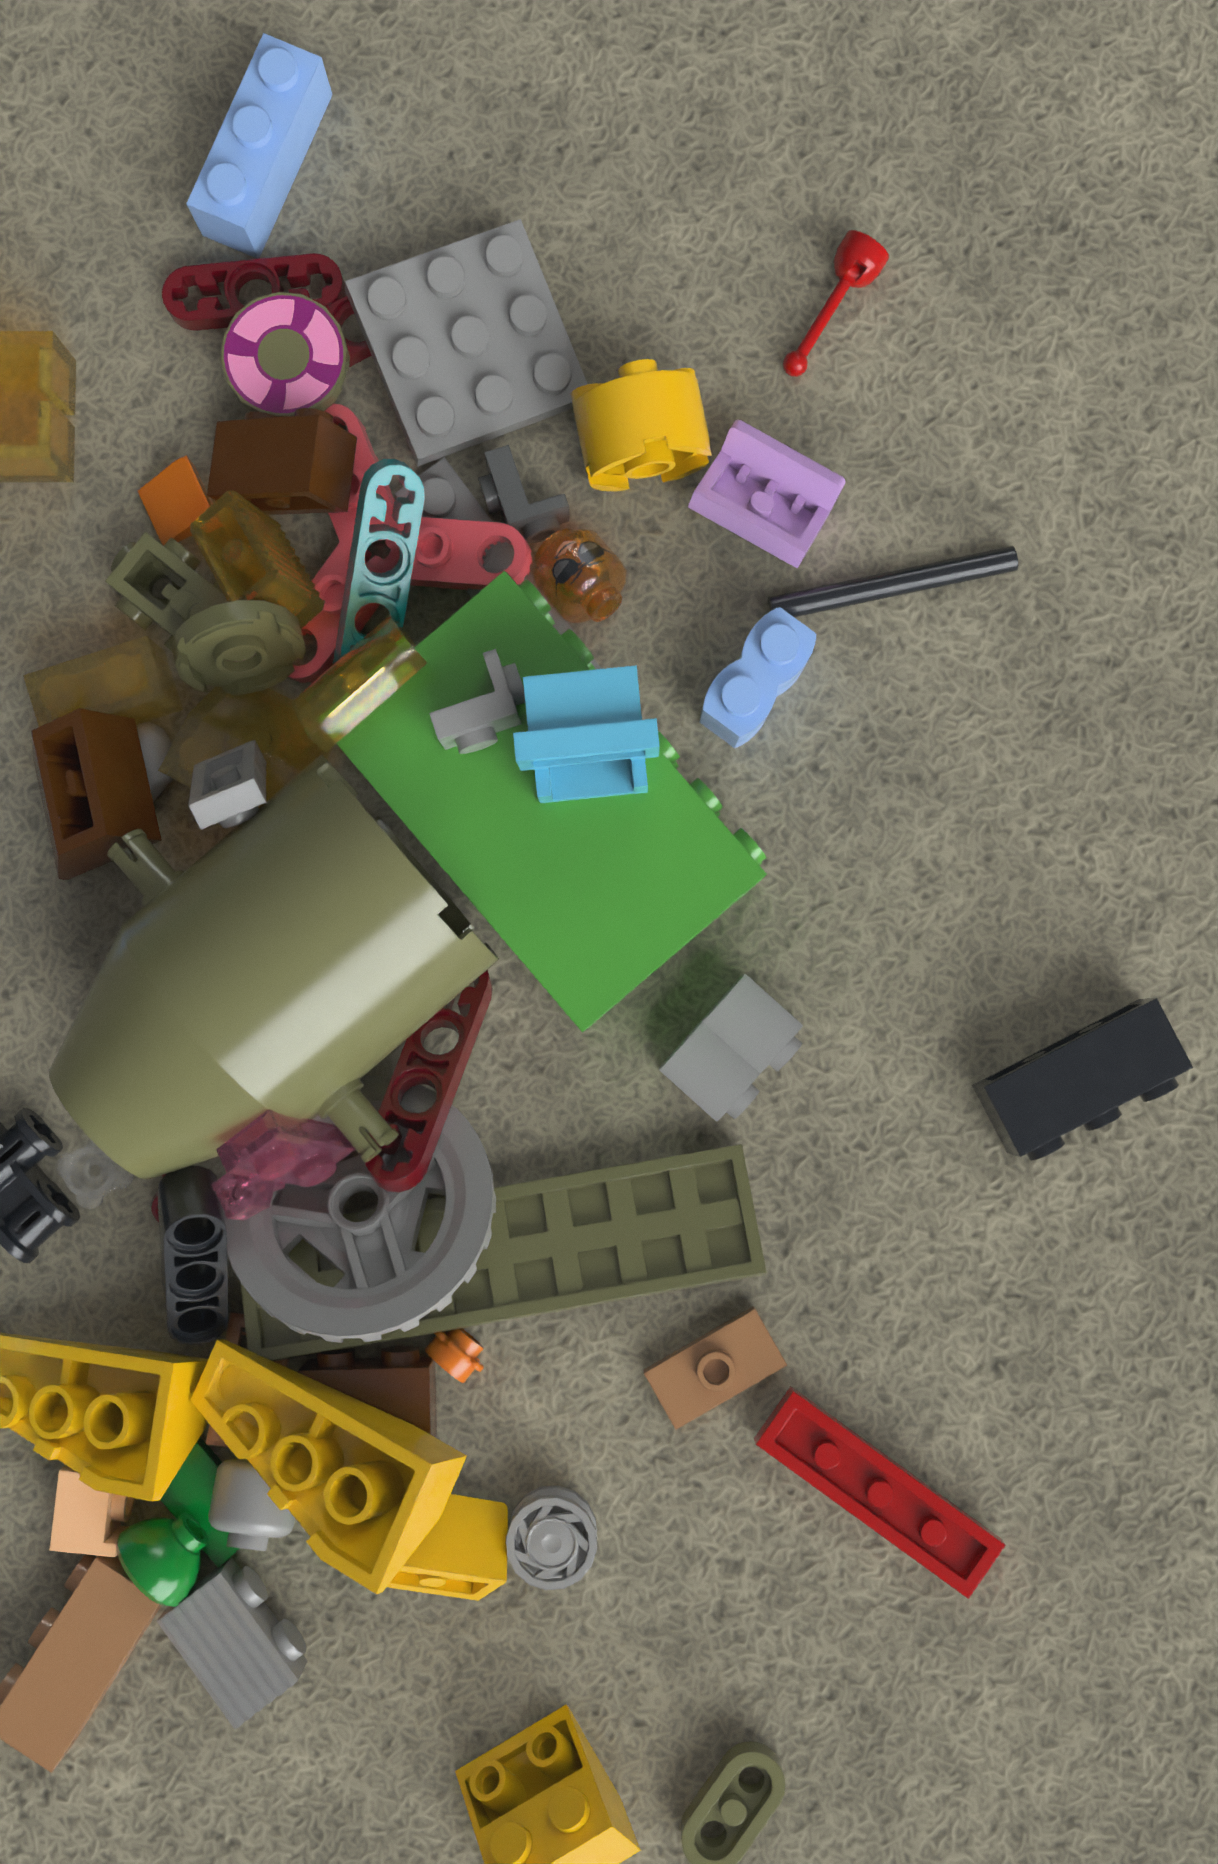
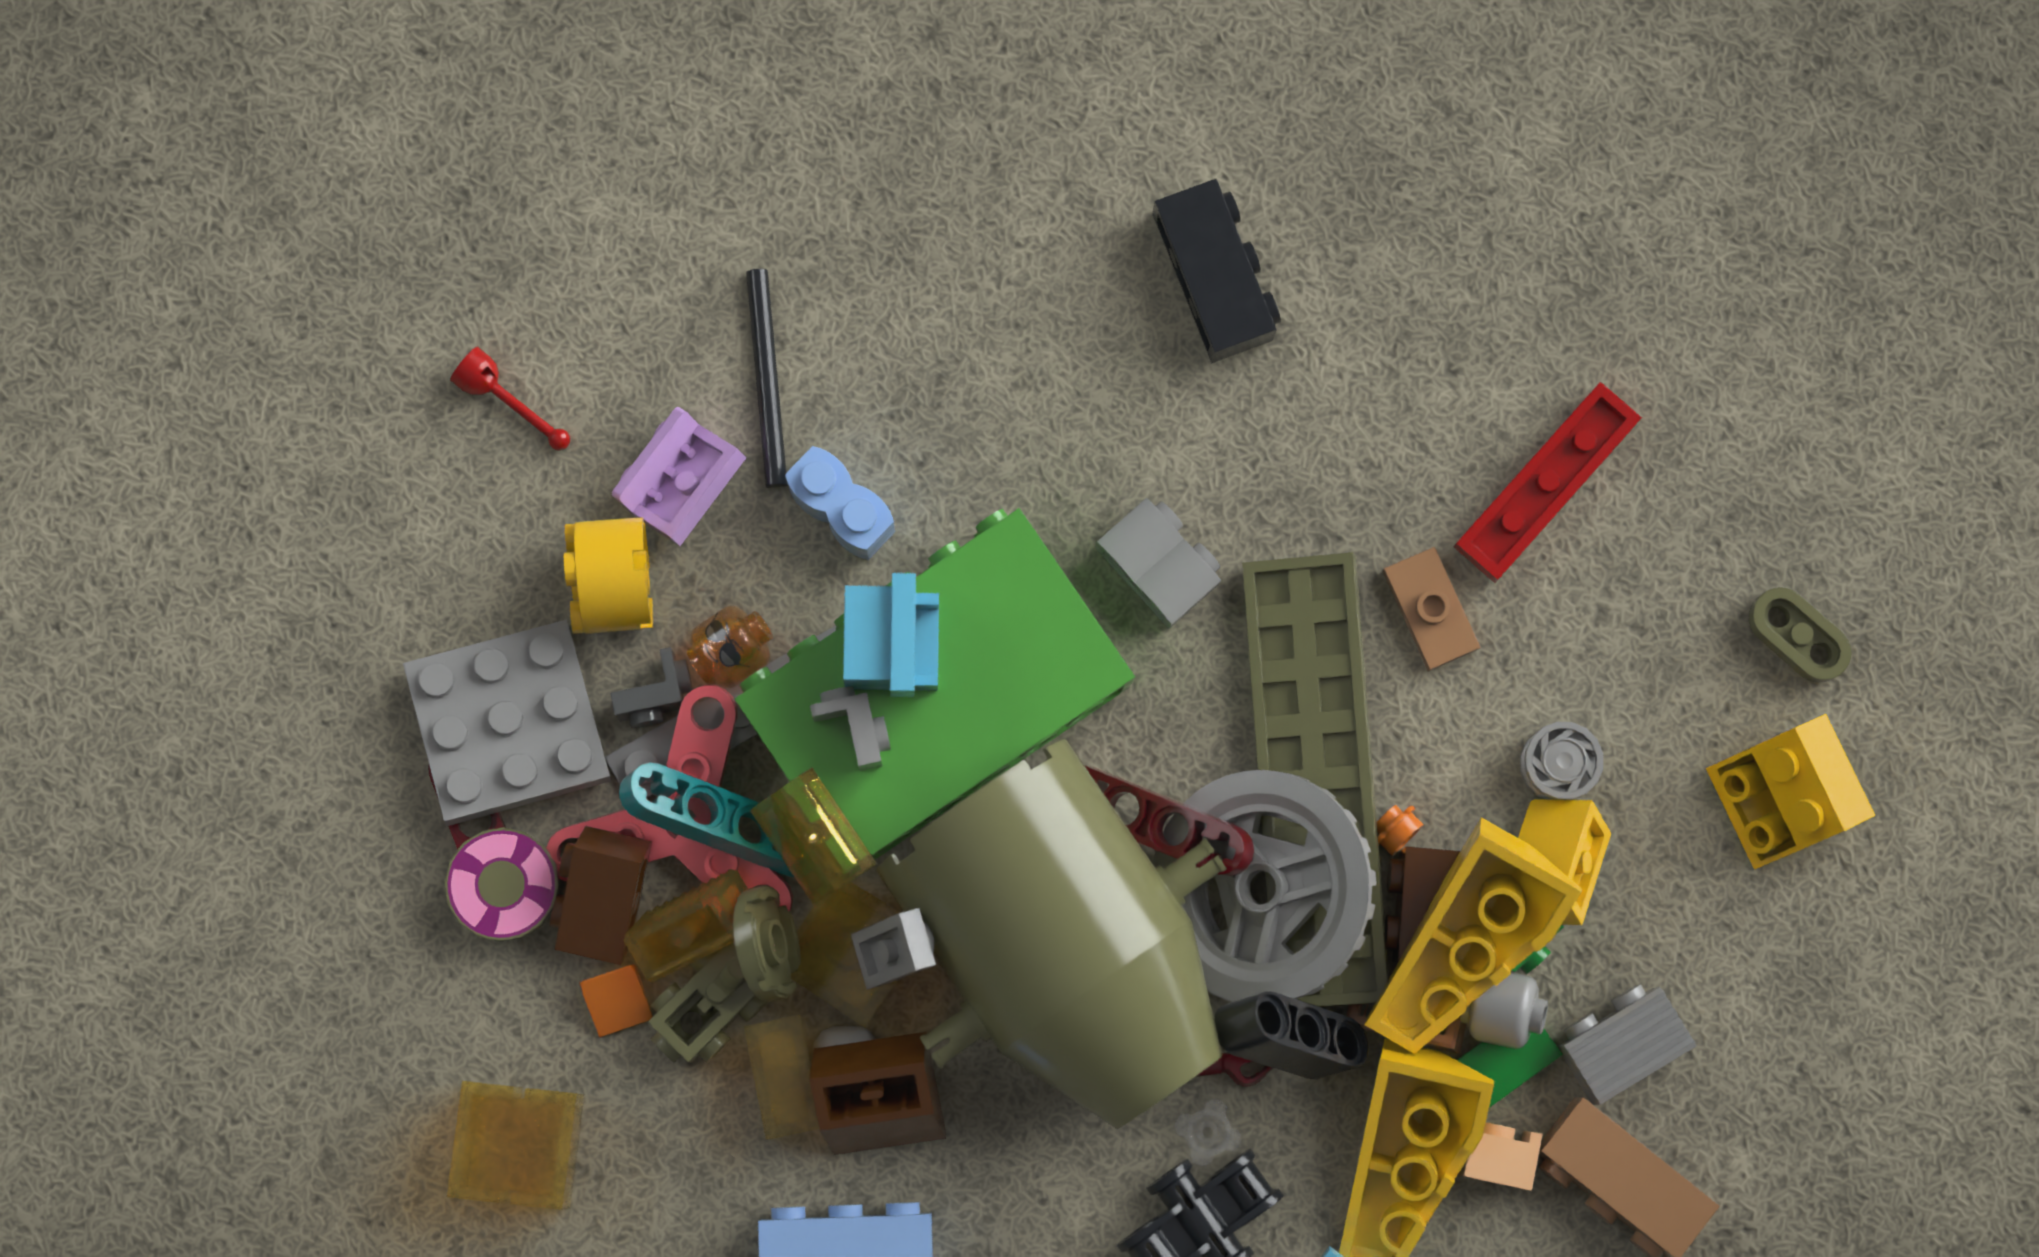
camera: 90 degrees left, 5 degrees down
(163, 1556) = (1545, 1092): green brick -> none
(237, 273) = (417, 954): dark red beam -> none
(260, 146) = (304, 888): light blue brick -> none
(273, 1153) = (1211, 938): clear pink hinge -> none

